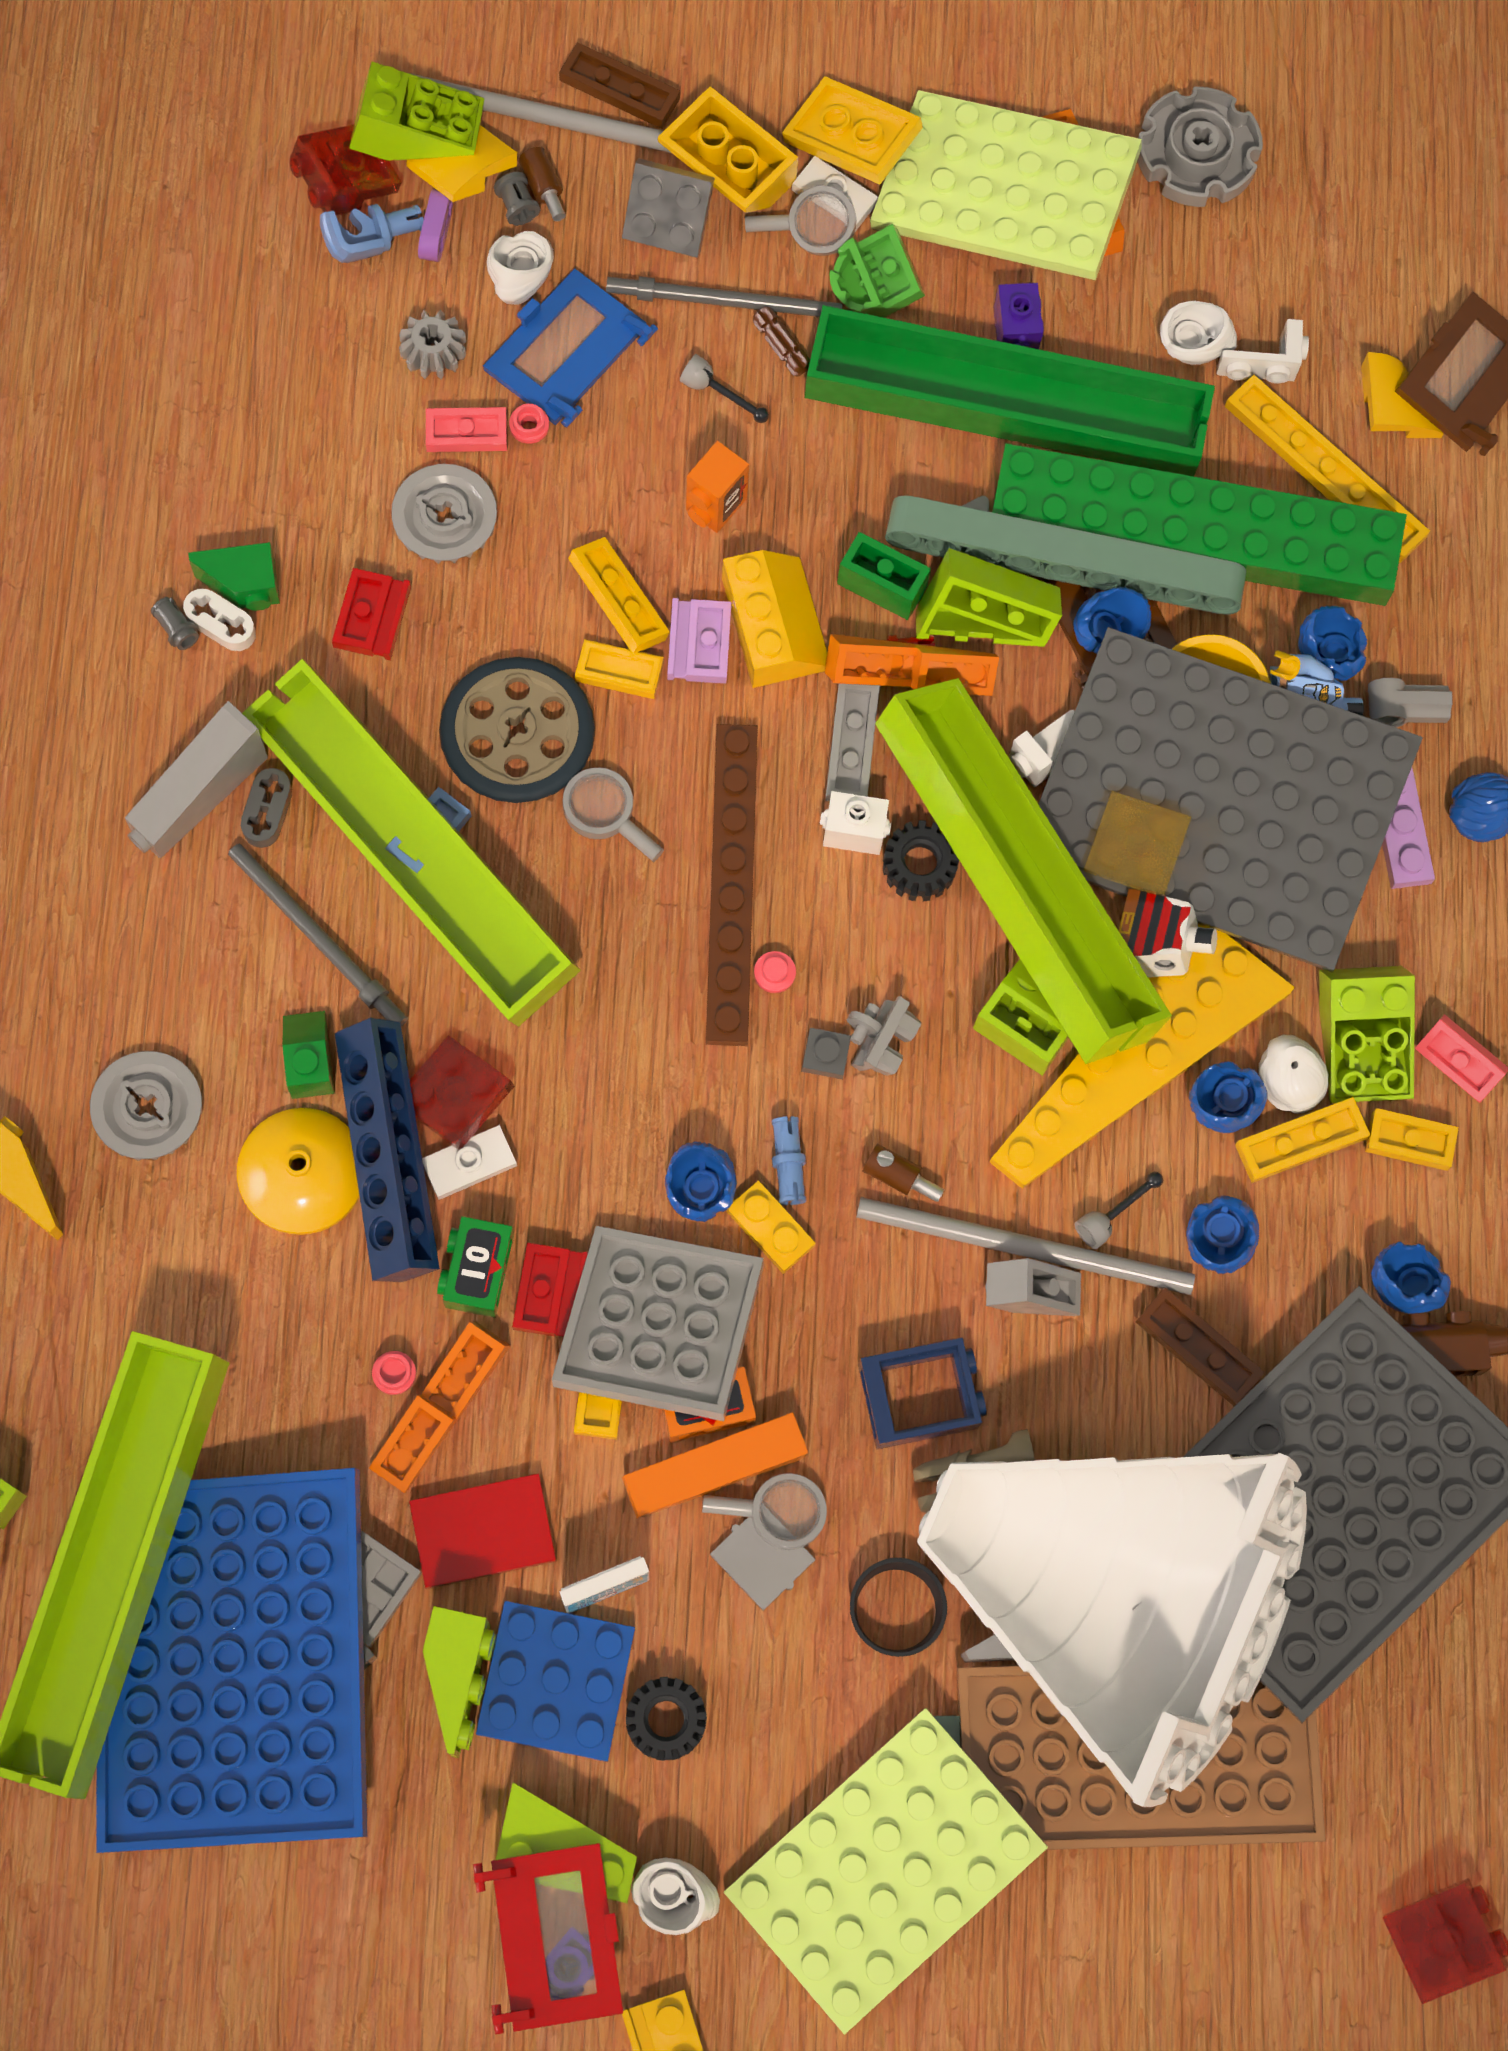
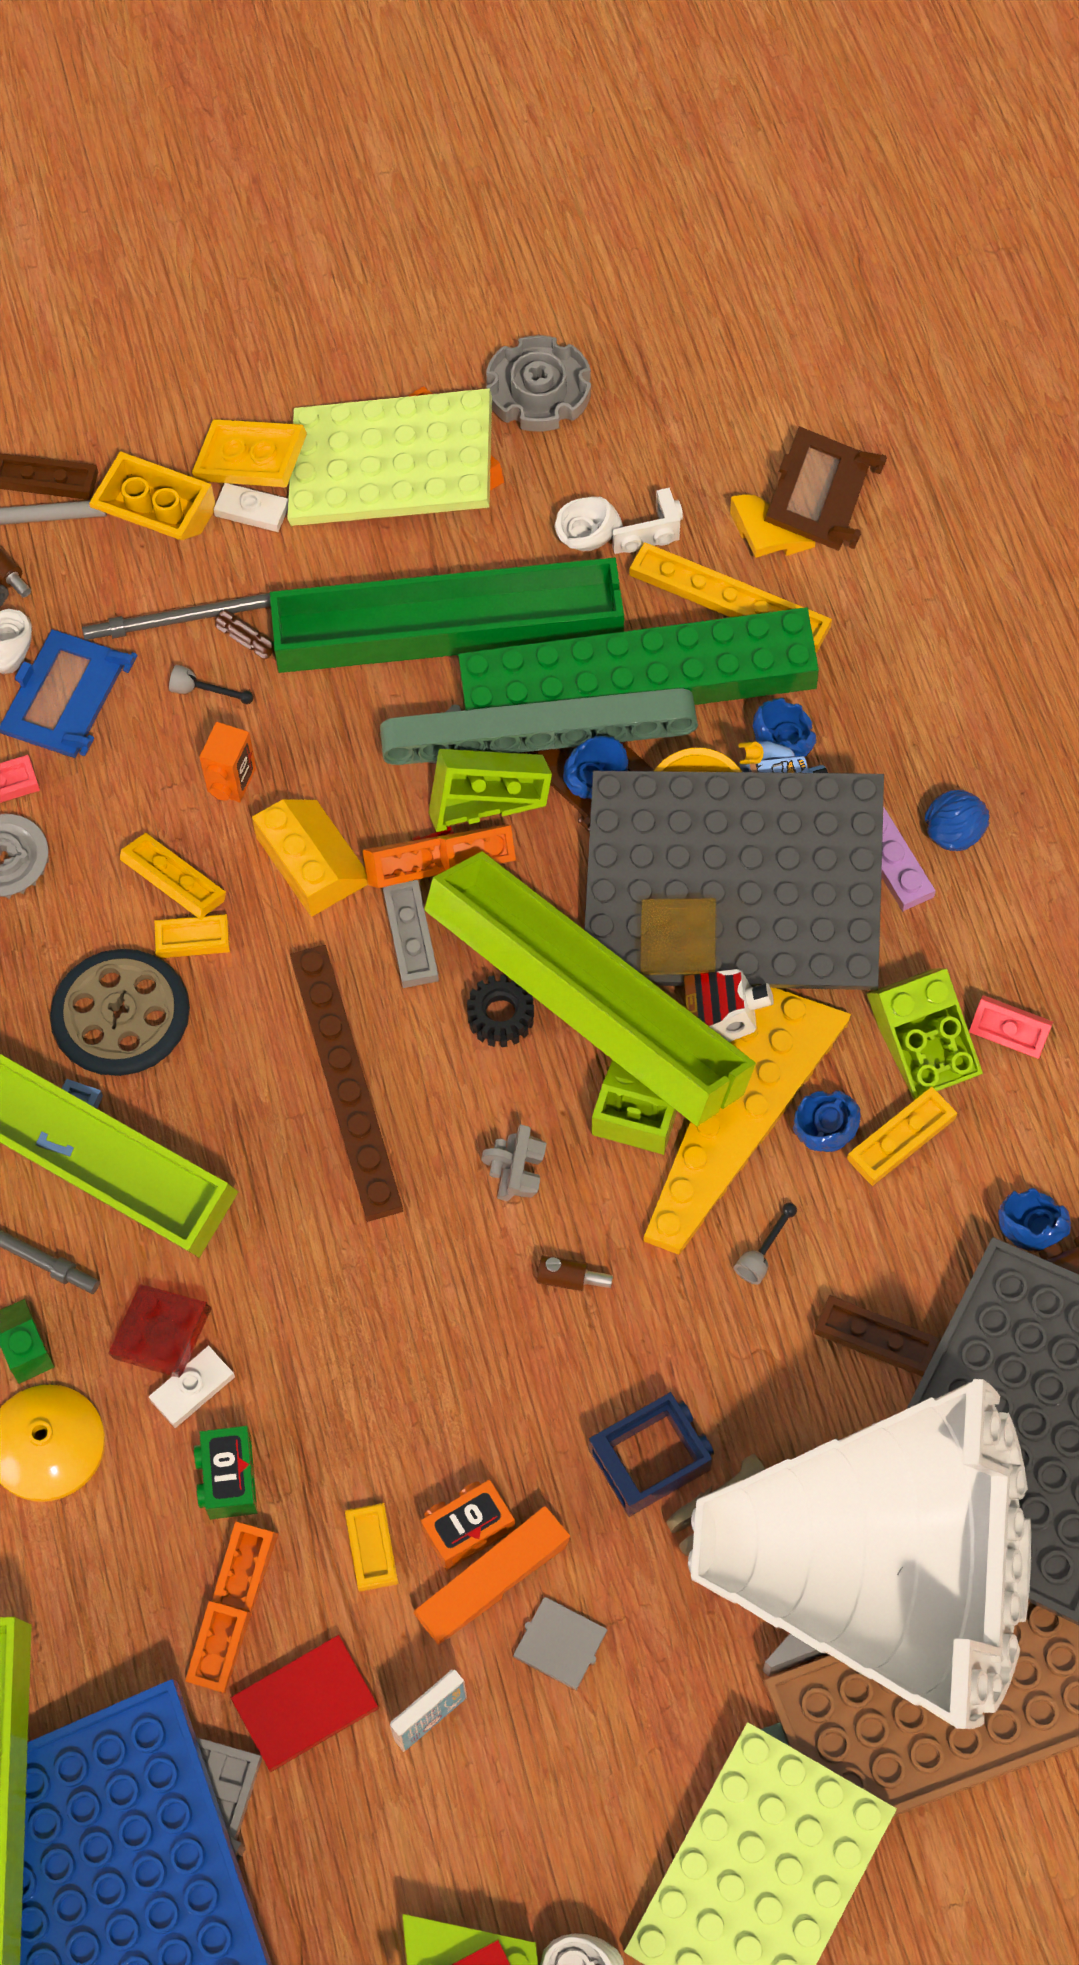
camera: 10 degrees left, 10 degrees down
(386, 1151) = (116, 1399): dark blue brick -> none
(394, 1373) = (182, 1590): coral plate -> none
(453, 1661) = (313, 1815): lime slope -> none
(529, 413) = (52, 754): coral plate -> none
(547, 1289) = (298, 1473): red plate -> none
(555, 1681) = (412, 1815): blue plate -> none
(601, 805) = (212, 1052): piece -> none
(658, 1323) = (402, 1466): light grey plate -> none
(668, 207) = (115, 556): flat silver plate -> none
(694, 1719) = (521, 1787): black tyre -> none
(699, 640) = (253, 891): lavender plate -> none
(700, 1181) = (399, 1335): blue hair -> none
(770, 1227) = (473, 1356): yellow plate -> none
(775, 972) = (406, 1141): coral plate -> none
(784, 1512) = (567, 1597): piece -> none
(788, 1160) = (470, 1295): medium blue pin -> none
(818, 220) = (244, 530): piece -> none
(826, 1053) = (473, 1195): dark grey plate -> none
(855, 823) = (435, 996): white head -> none
(875, 274) = (306, 557): bright green slope -> none
(883, 575) = (391, 790): green brick -> none
(930, 1580) = (704, 1608): black tyre -> none
(1018, 314) = (434, 552): dark purple head -> none
(1025, 1245) = (698, 1300): light grey piece -> none
(1033, 1288) = (717, 1332): light grey slope -> none
(1036, 755) = (569, 893): white bracket -> none
(1223, 1234) = (863, 1235): blue hair -> none
(1295, 1085) = (877, 1094): white hair -> none
(1398, 703) = (865, 756): light grey piece -> none
(1411, 1139) = (993, 1106): yellow plate -> none

